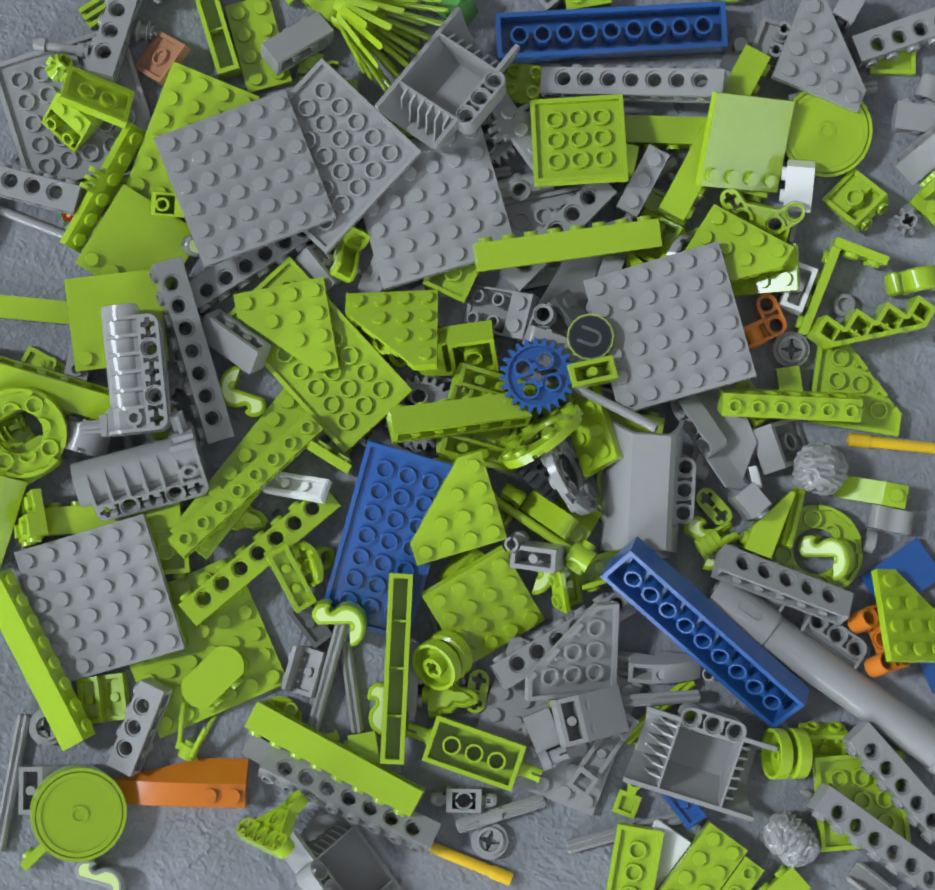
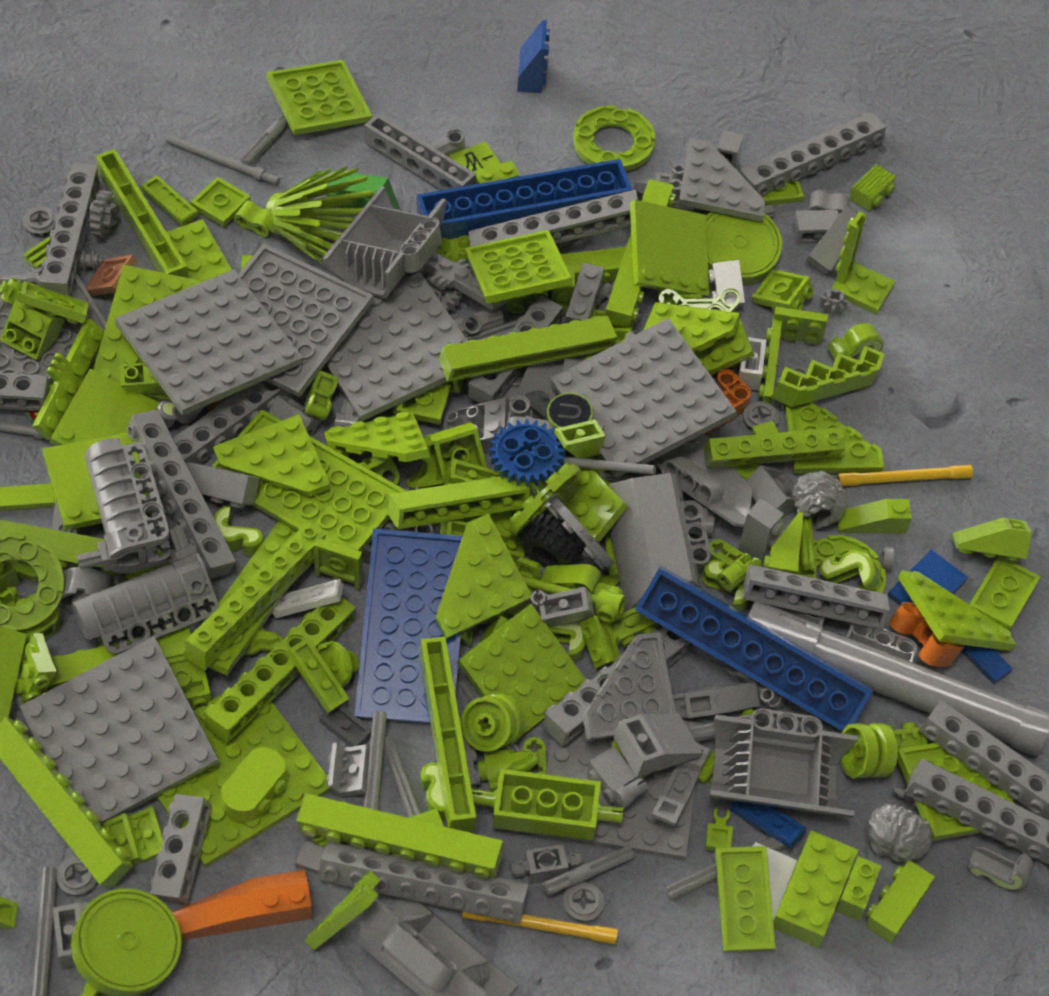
camera: 15 degrees left, 30 degrees down
(190, 747) = (240, 865): lime plant -> none
(297, 43) = (236, 244): light grey brick -> none
(344, 613) = (381, 699): lime animal -> none
(890, 520) = (902, 537): light grey axle -> none

